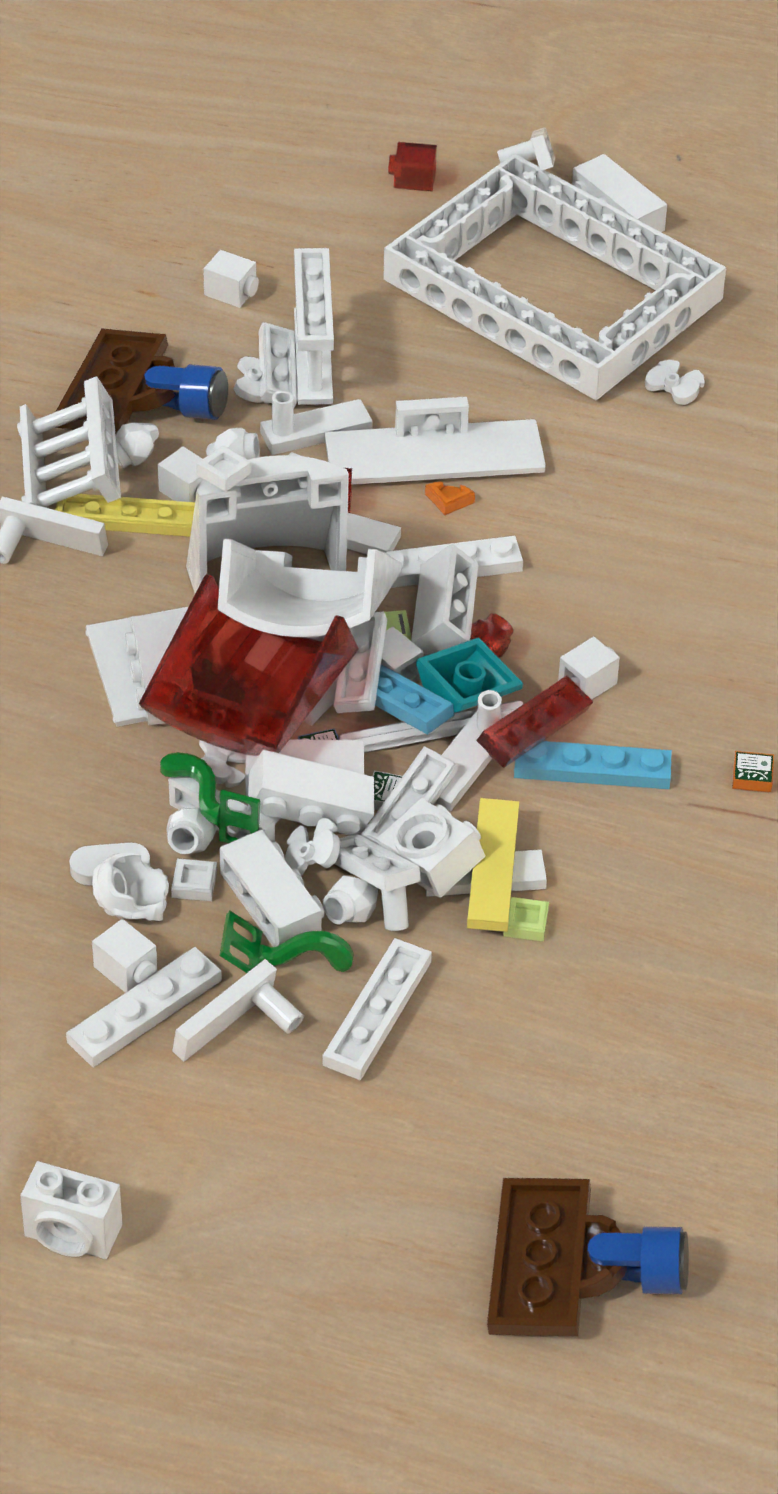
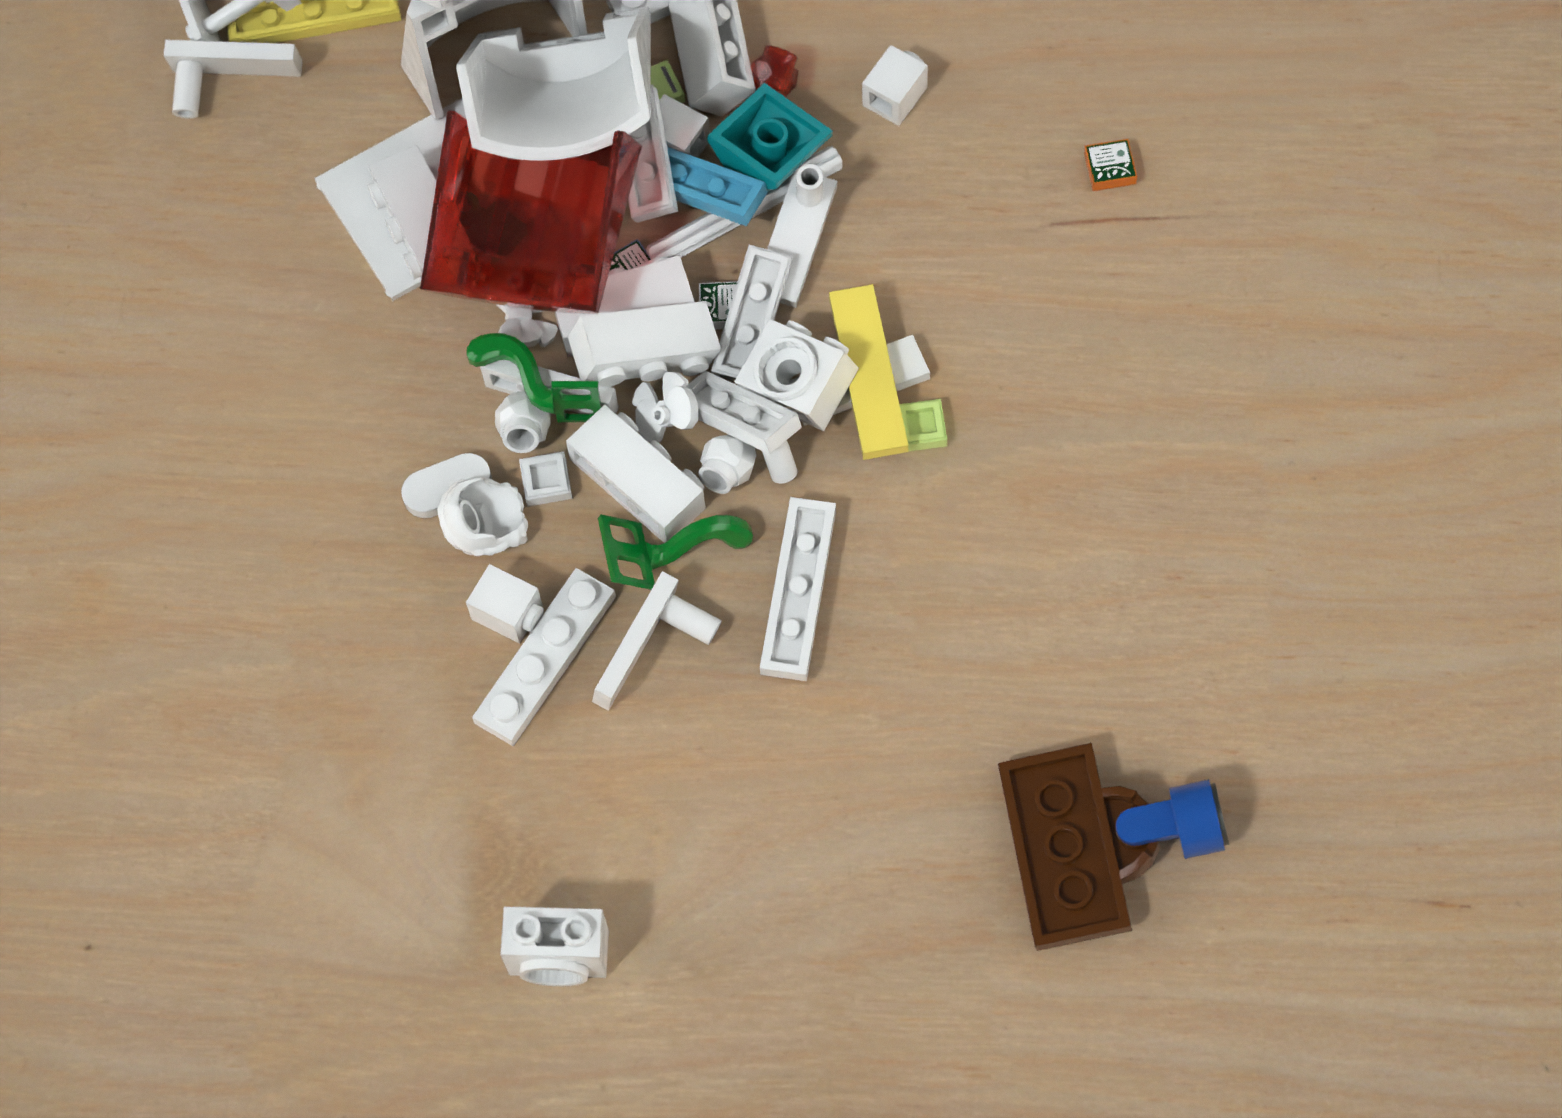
camera: 10 degrees left, 20 degrees up
(534, 721) = (859, 175): clear red plate -> none
(596, 765) = (933, 204): medium azure plate -> none

